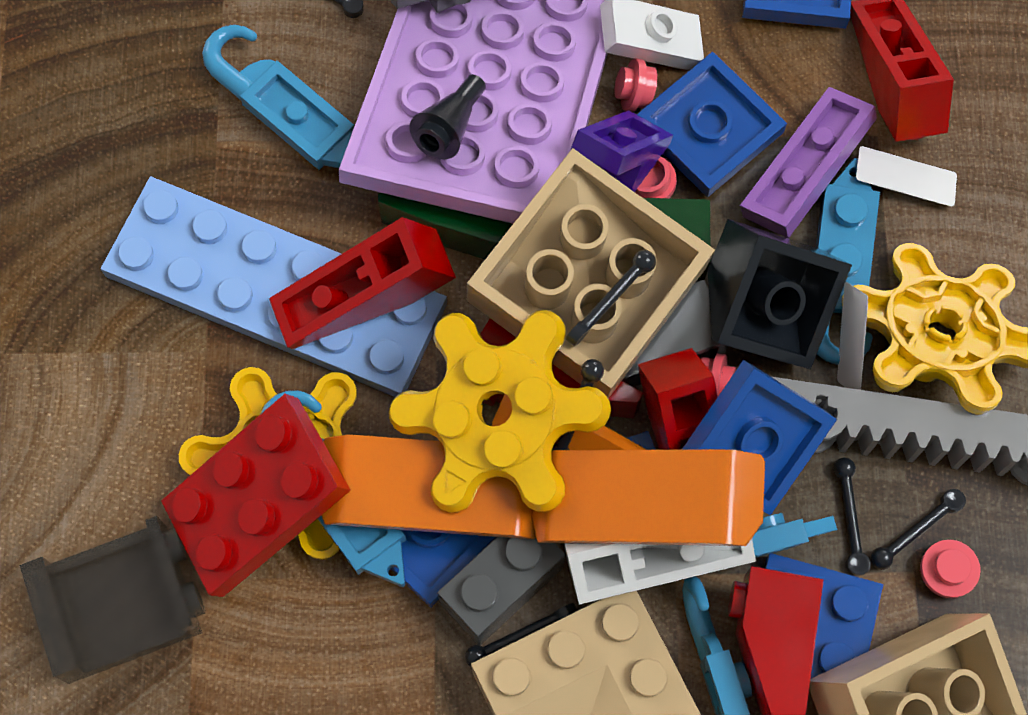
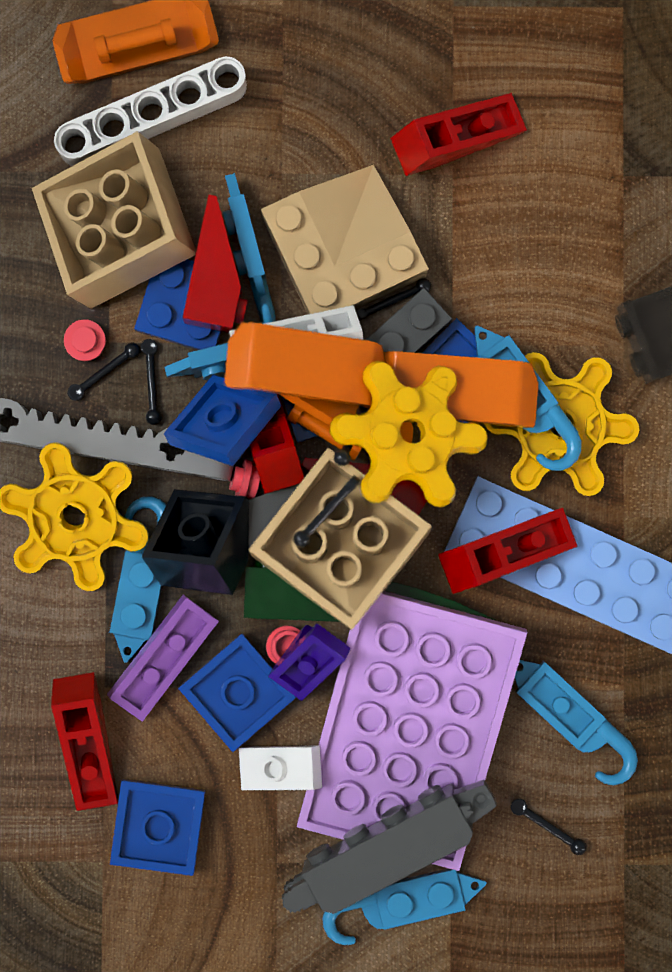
camera: 175 degrees right, 15 degrees up
(254, 495) = (582, 389): red plate -> none
(441, 126) = (447, 666): black cone -> none
(636, 85) = (294, 725): coral plate -> none
(852, 337) = (143, 505): white sticker -> none
(906, 176) = (86, 648): white sticker -> none

